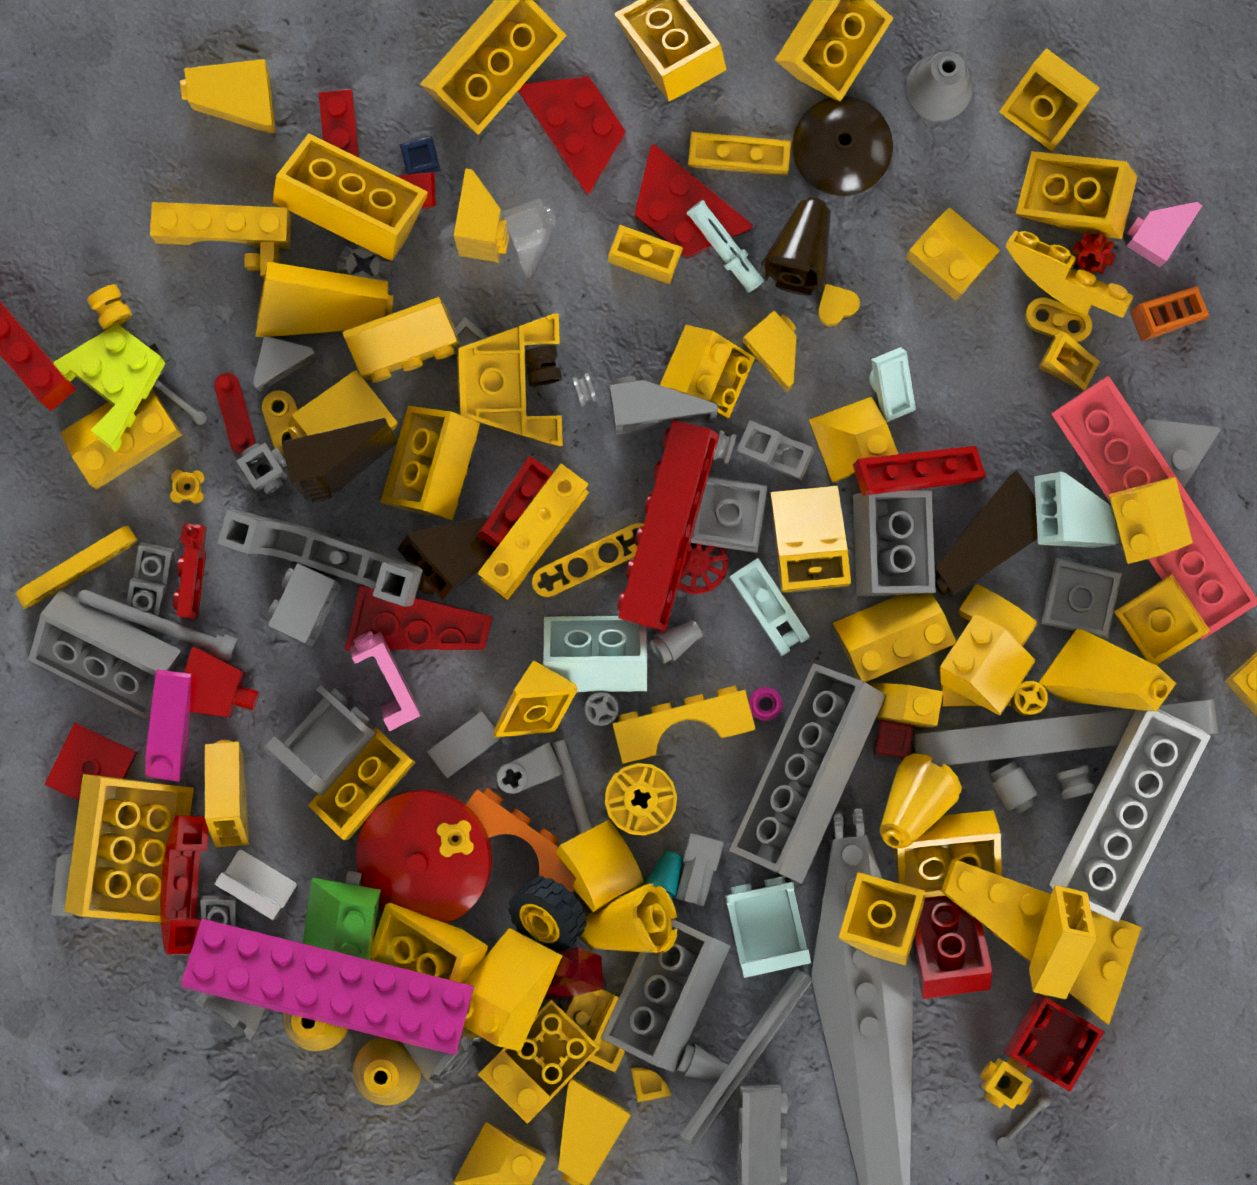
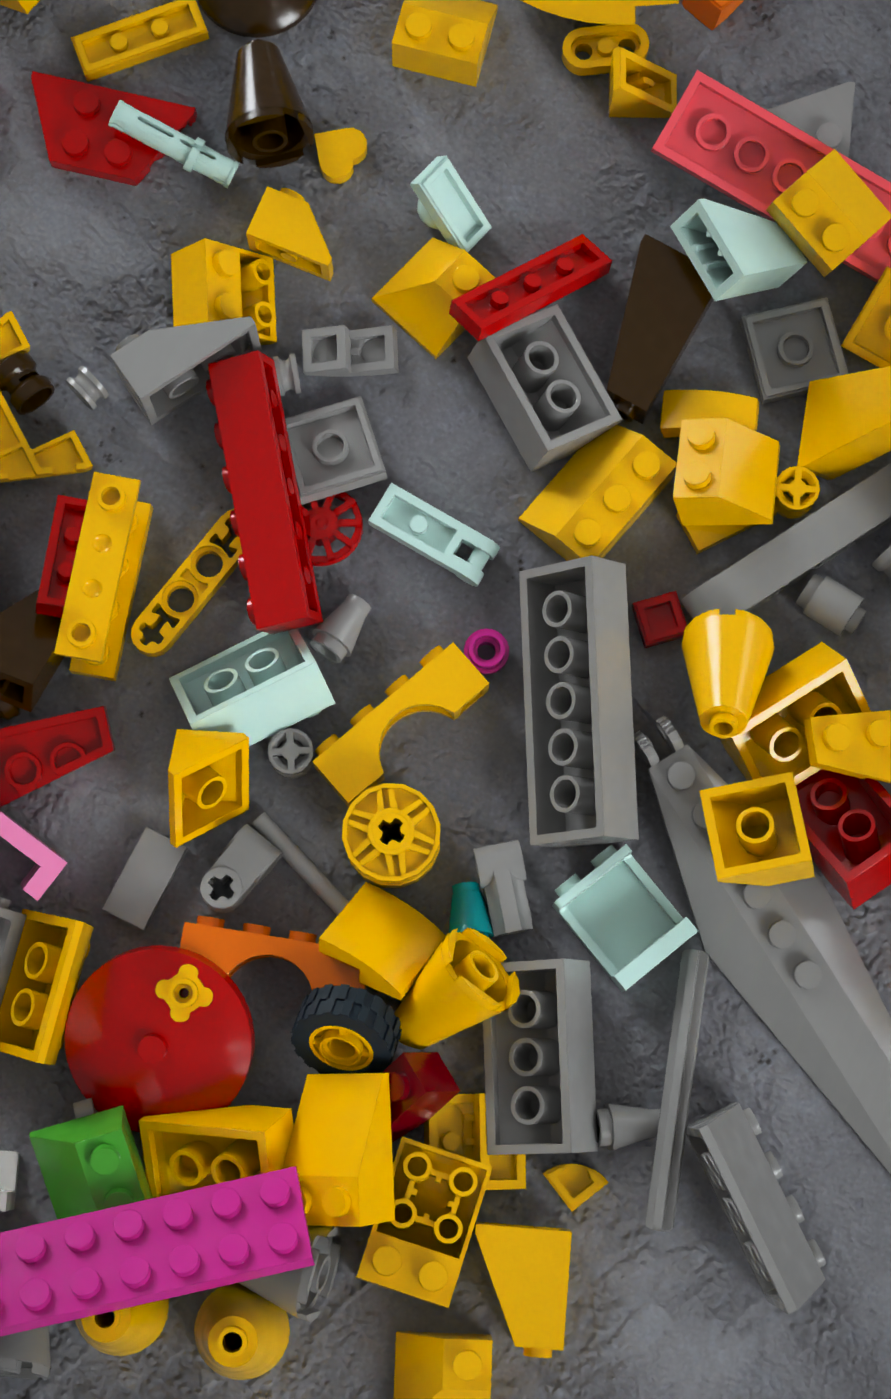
camera: 25 degrees left, 5 degrees down
(644, 254) = (83, 201): yellow slope -> none
(810, 539) = (444, 433): yellow slope -> none
(909, 704) = (662, 561): yellow slope -> none

